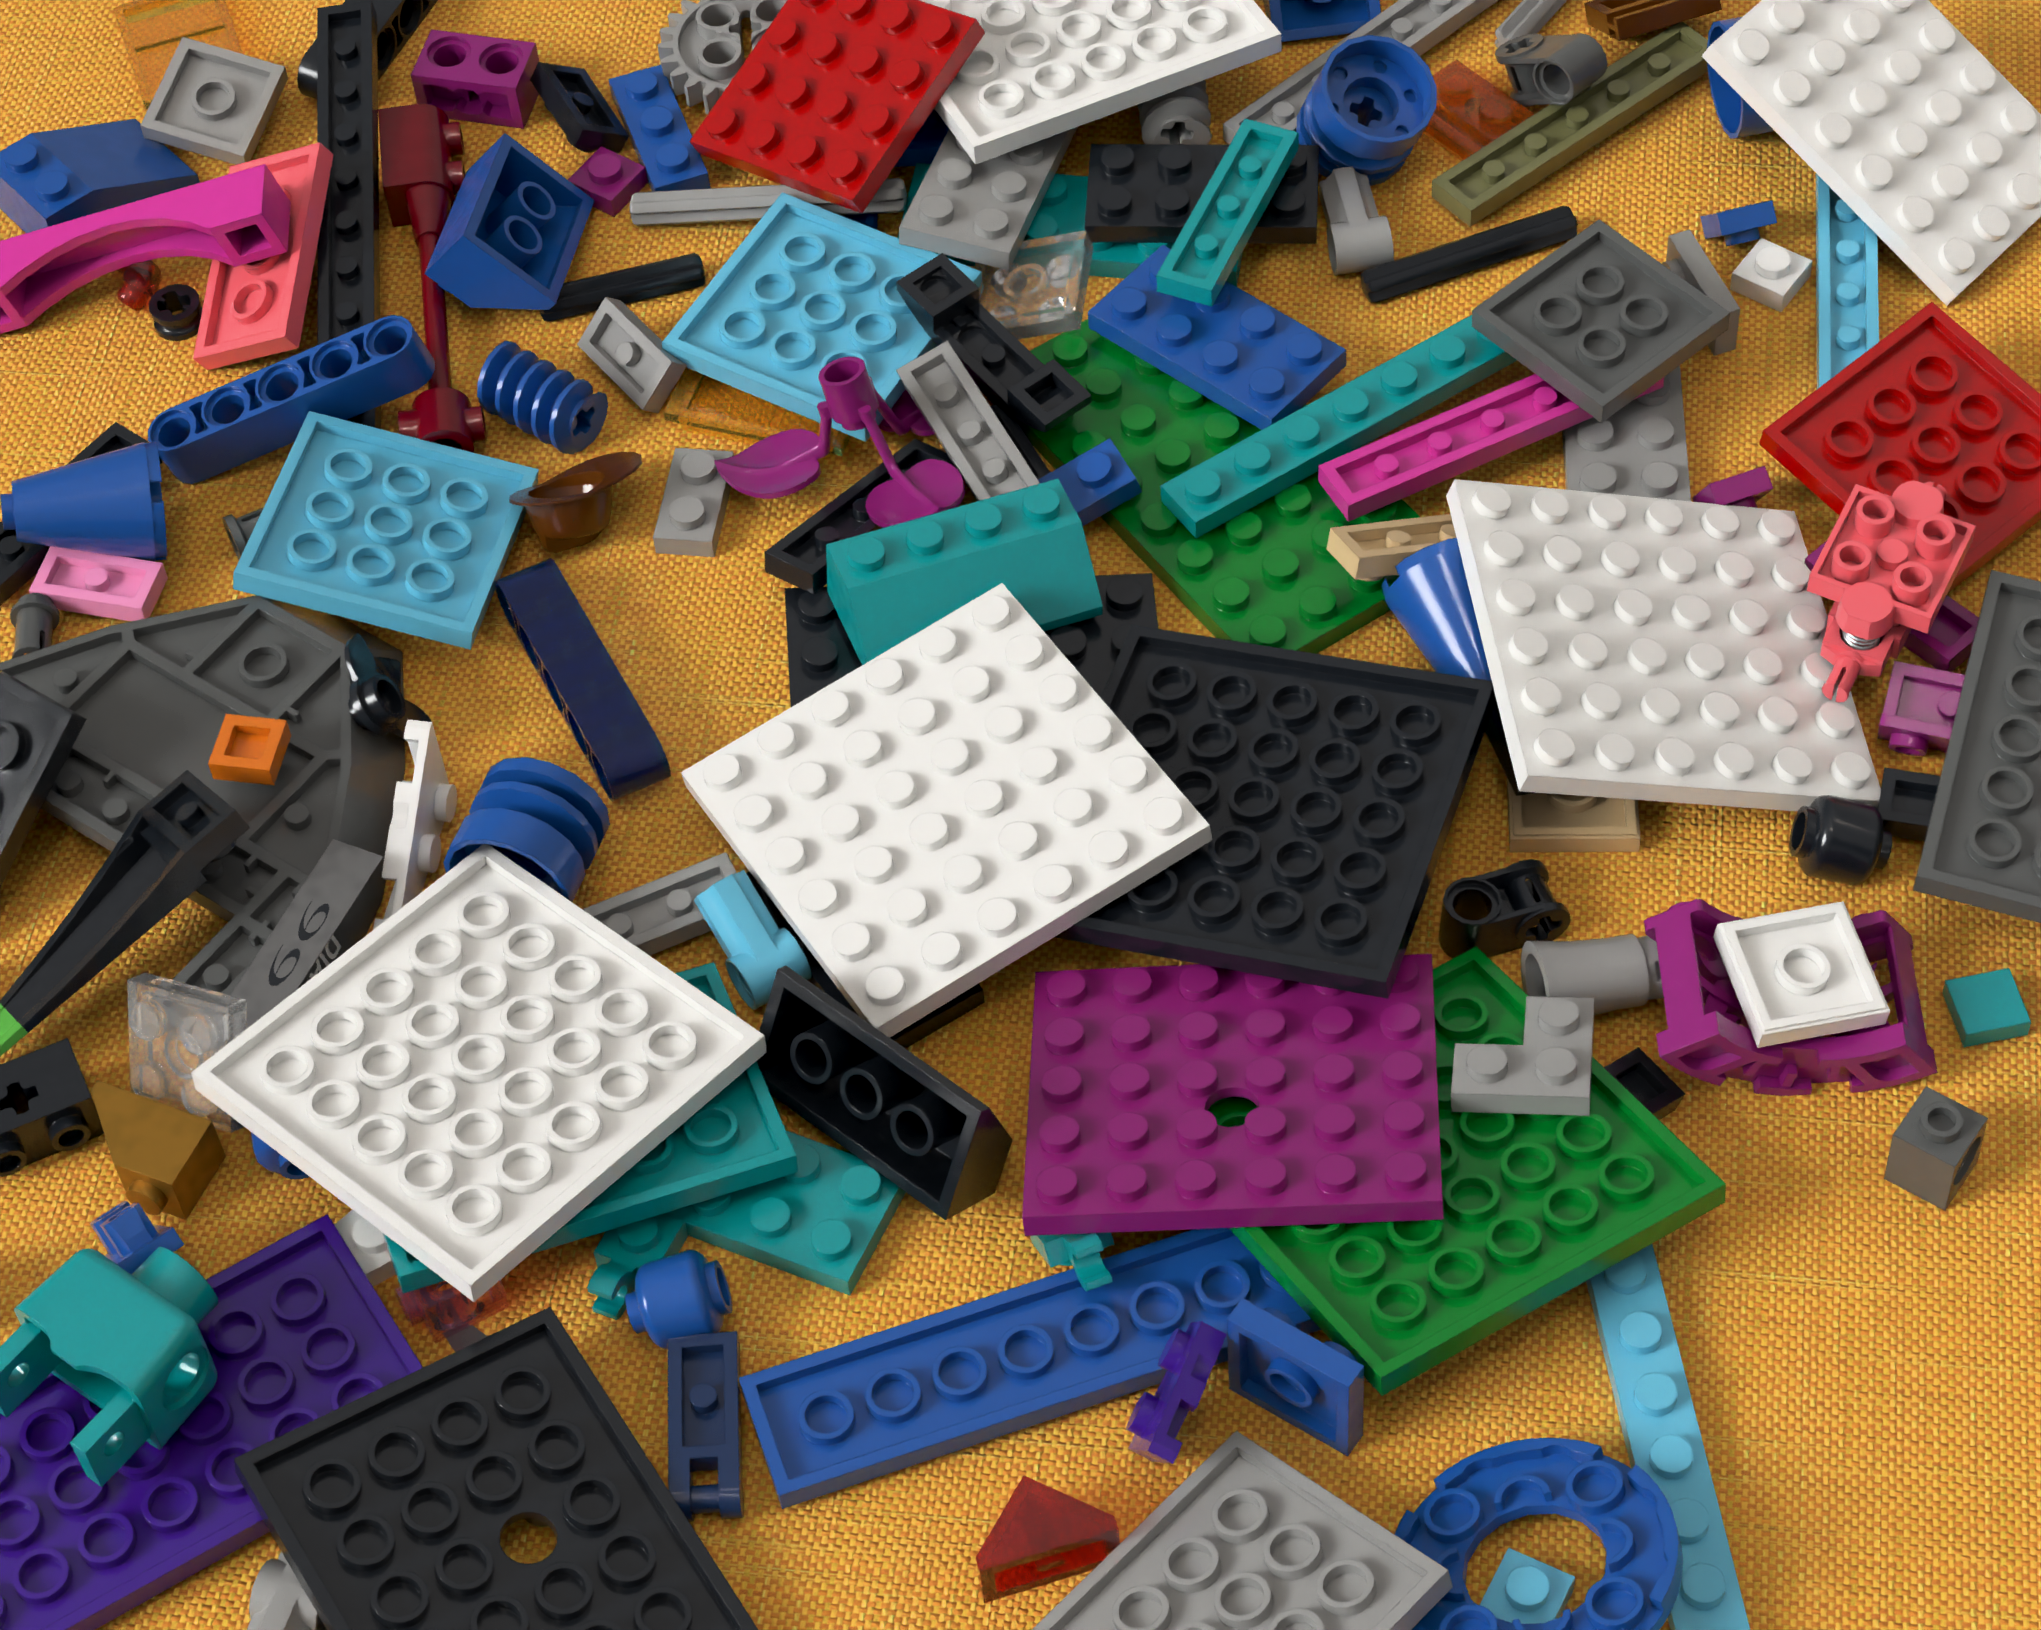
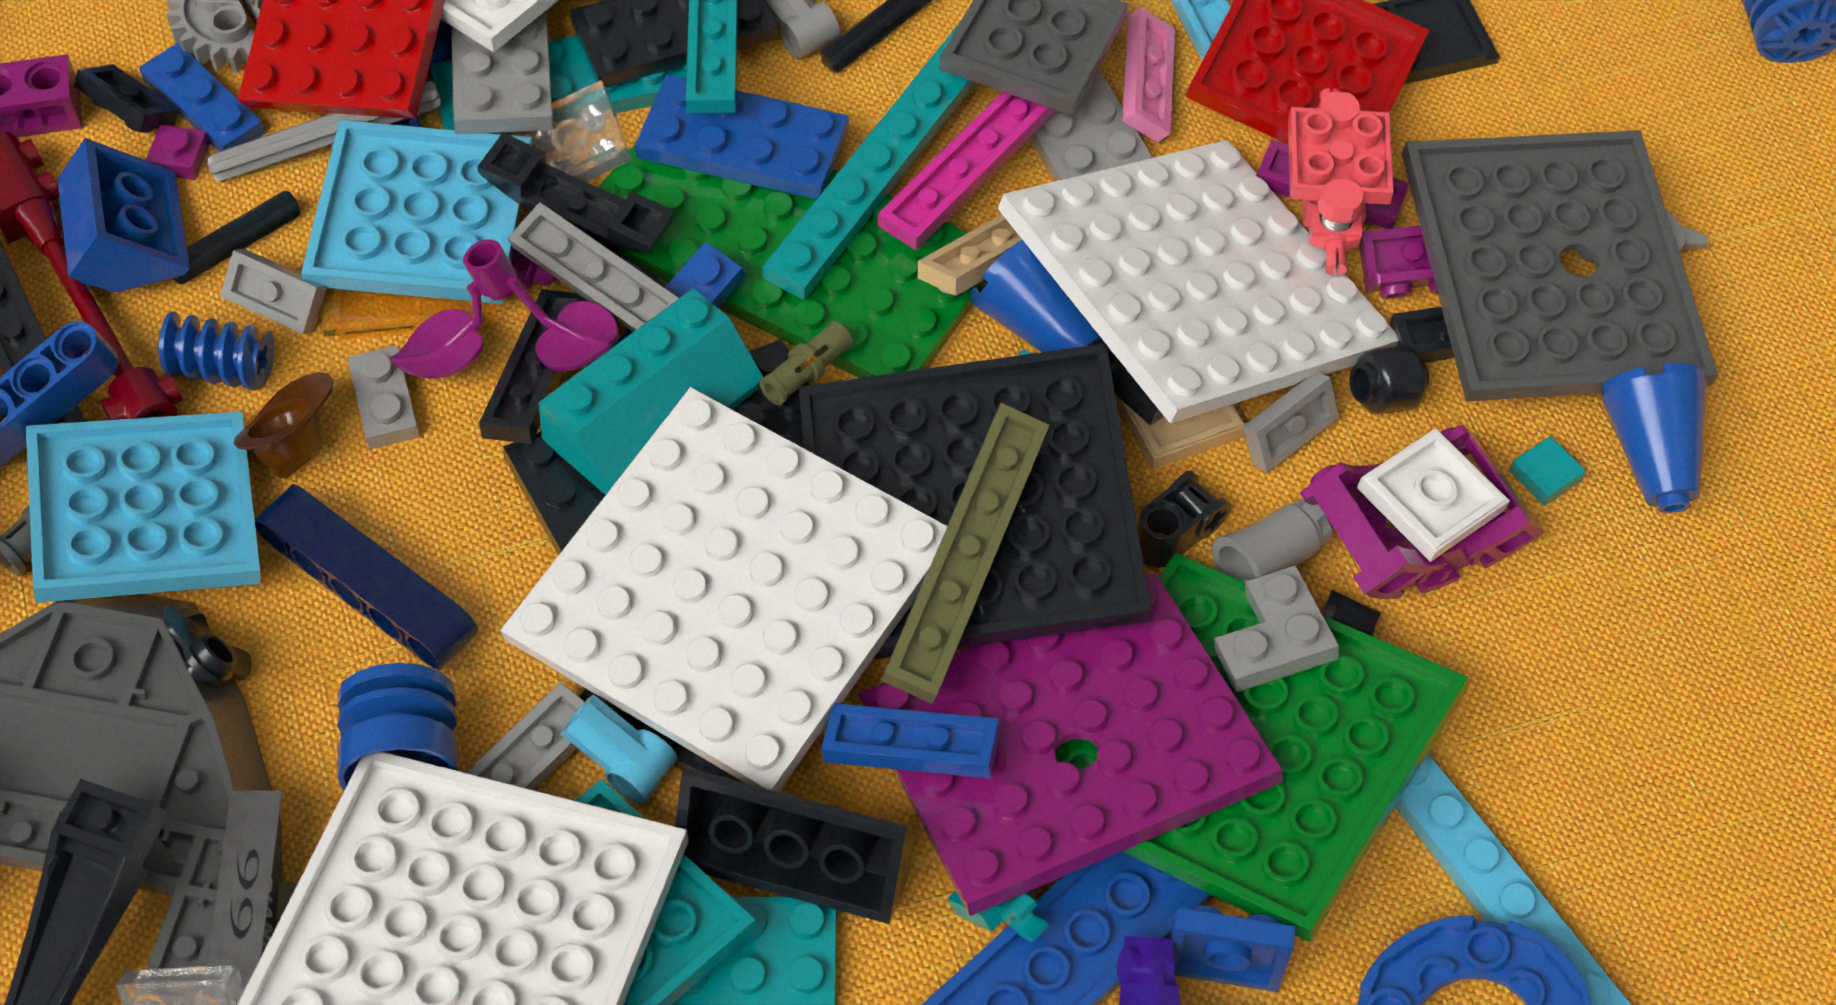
camera: 30 degrees left, 5 degrees up
(249, 749) = (122, 739): orange plate -> none
(417, 818) = (293, 767): white wing -> none
(1051, 1030) = (911, 740): none -> blue plate
(1157, 603) = (784, 379): none -> olive pin
(1208, 850) = (965, 554): none -> olive plate
(1694, 848) = (1291, 421): none -> light grey plate
(1736, 407) = (1148, 75): none -> bright pink plate
(1737, 490) = (1183, 137): magenta plate -> none
(1935, 1148) = (1576, 591): dark grey brick -> none

